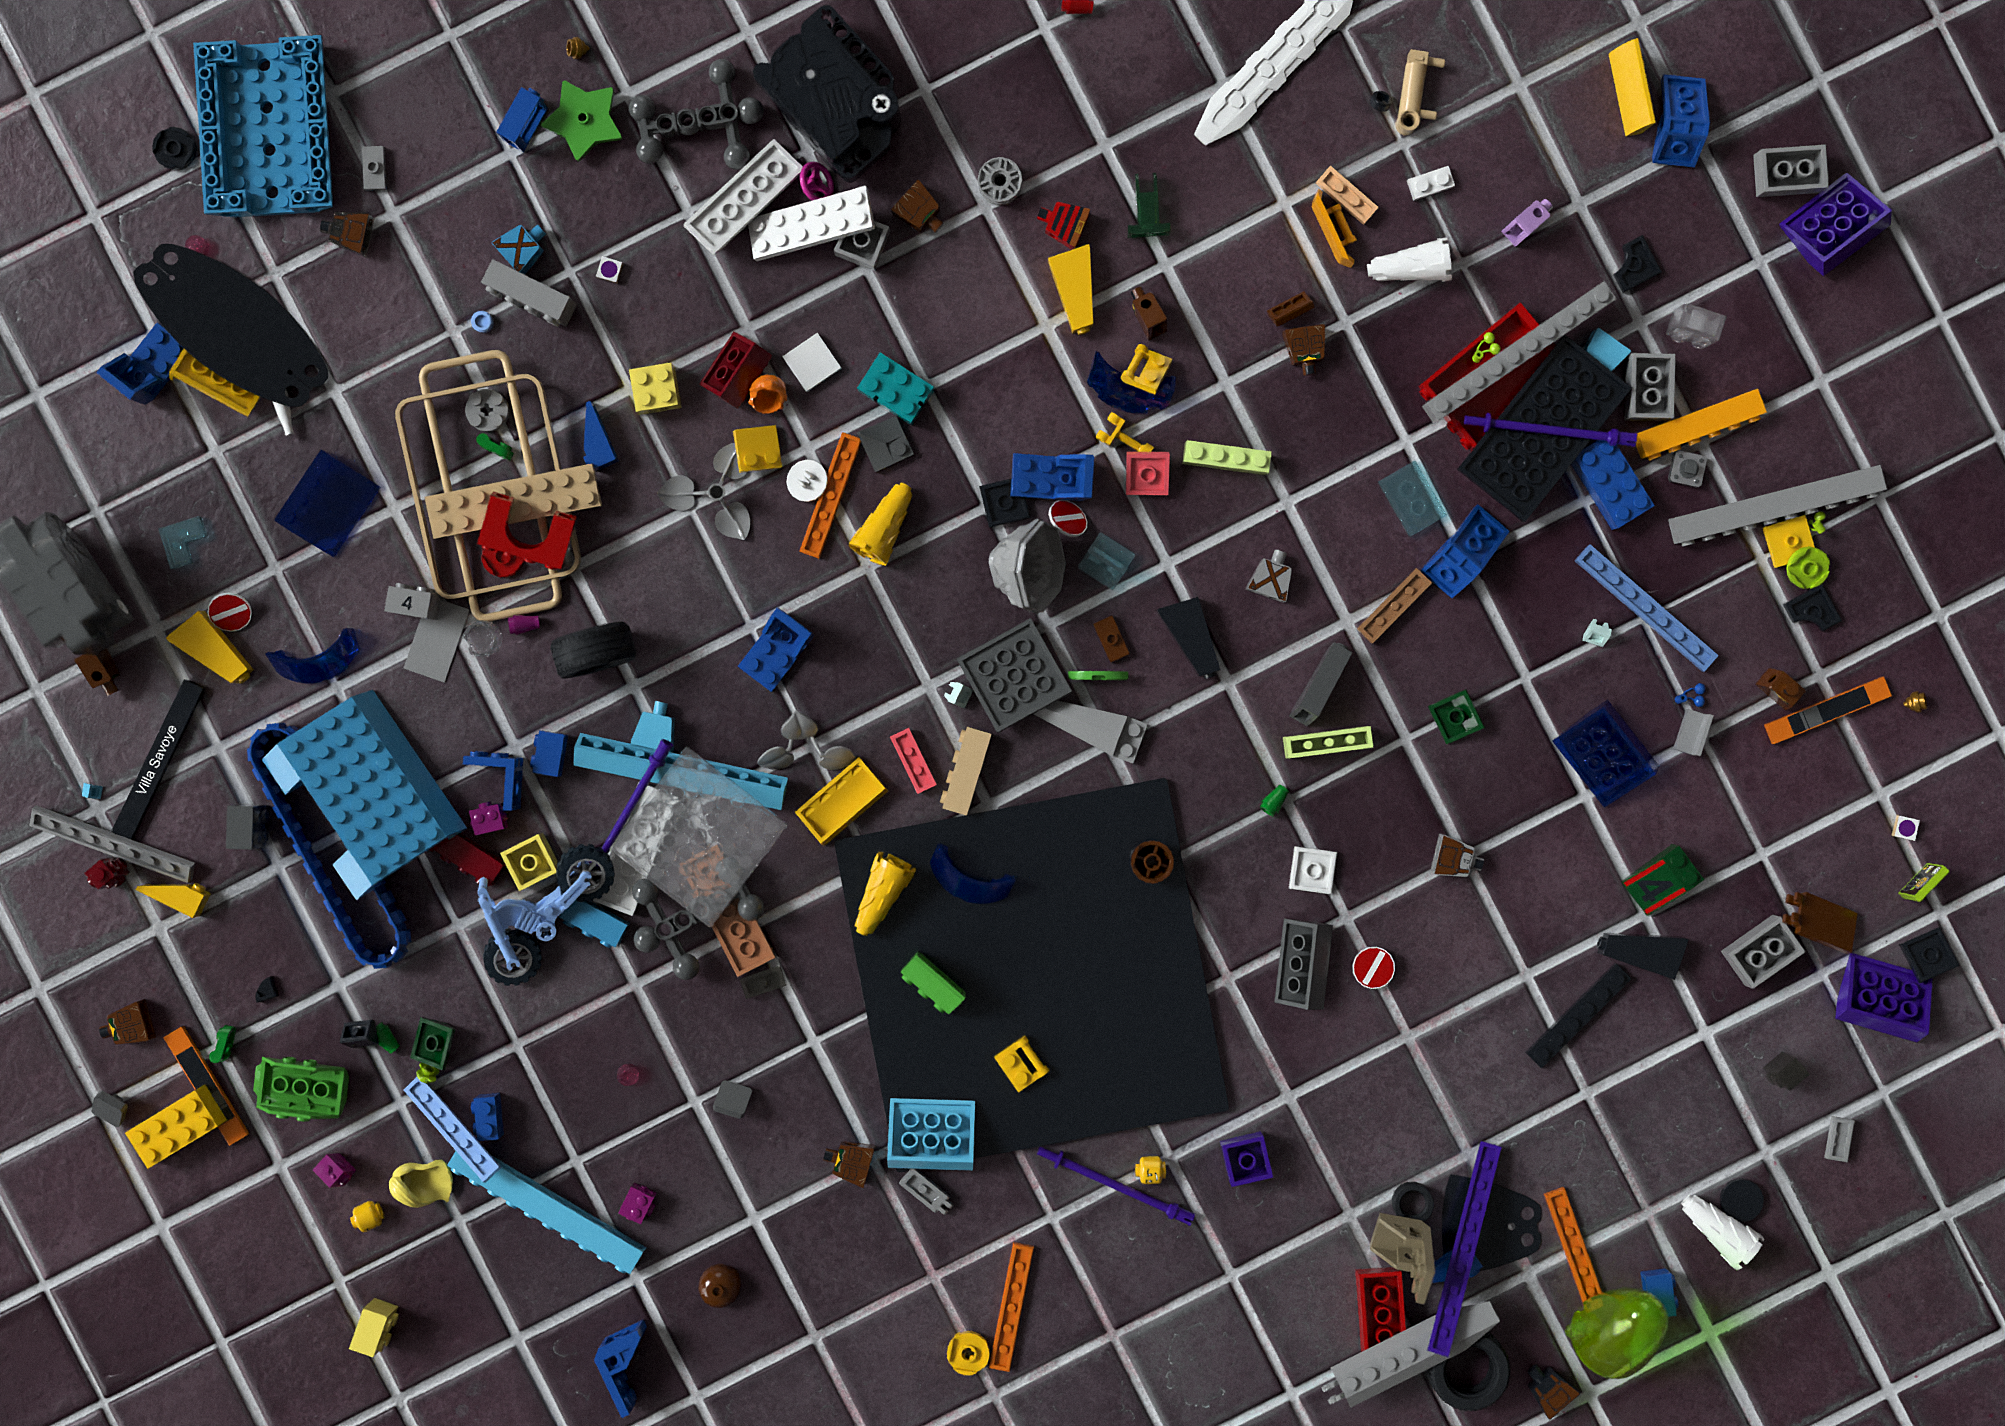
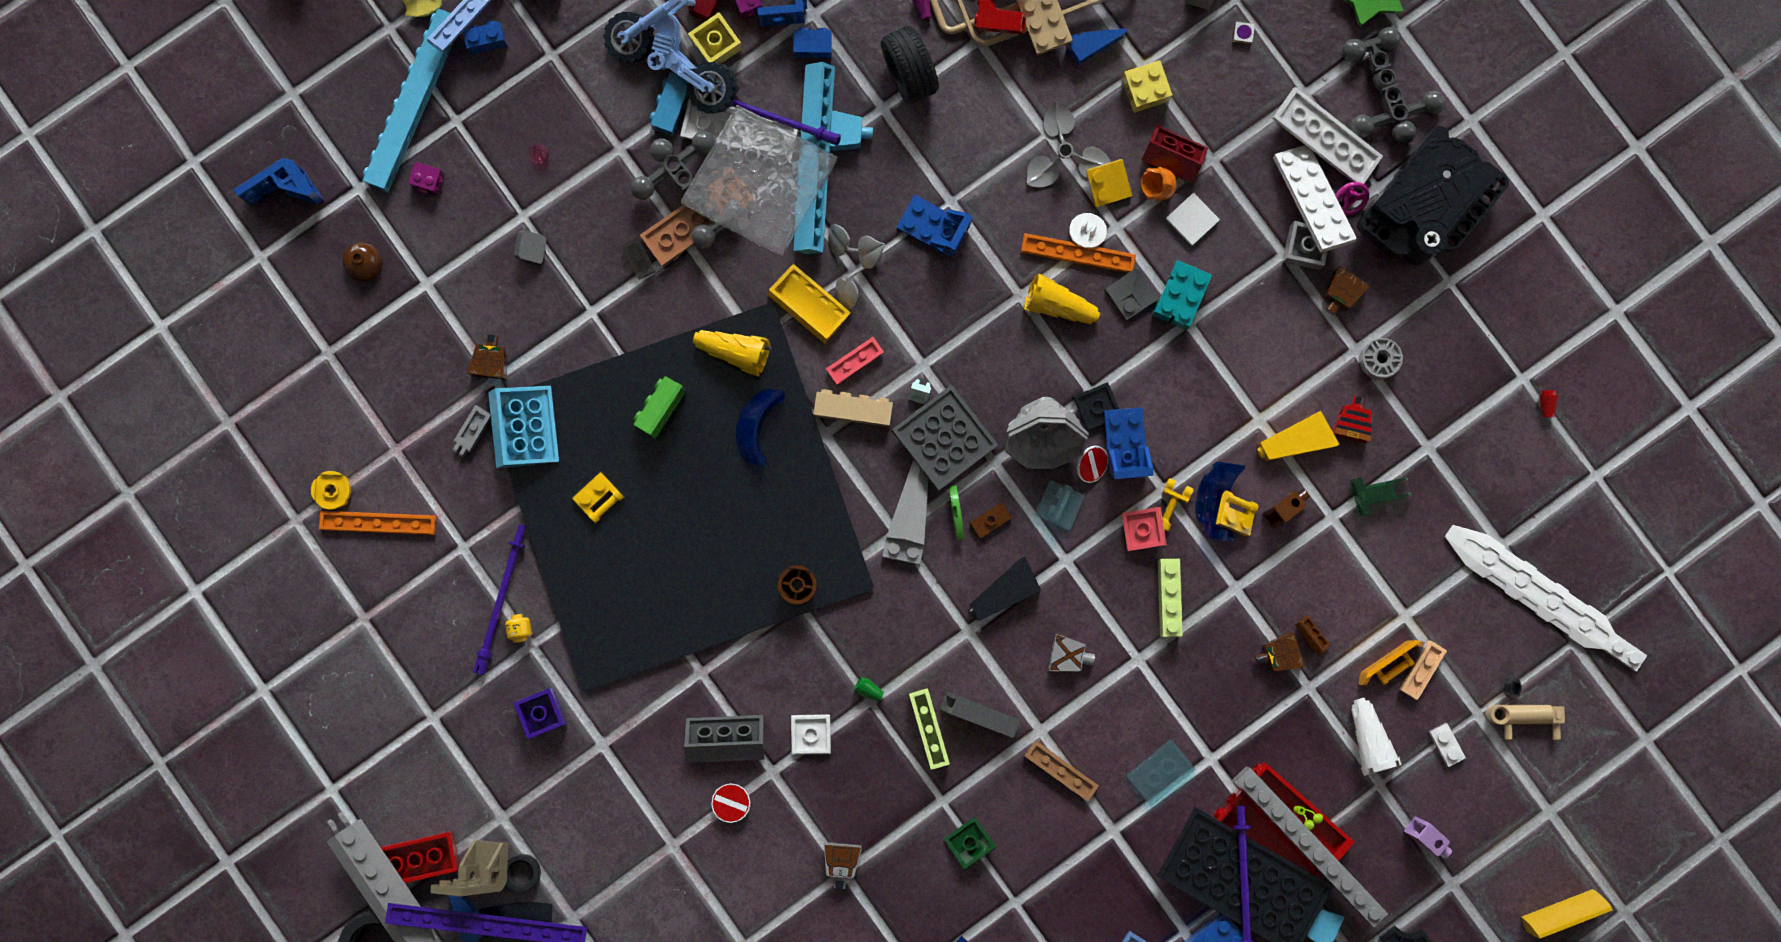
camera: 75 degrees right, 5 degrees down
(1465, 552) = (1121, 827): blue bracket -> none

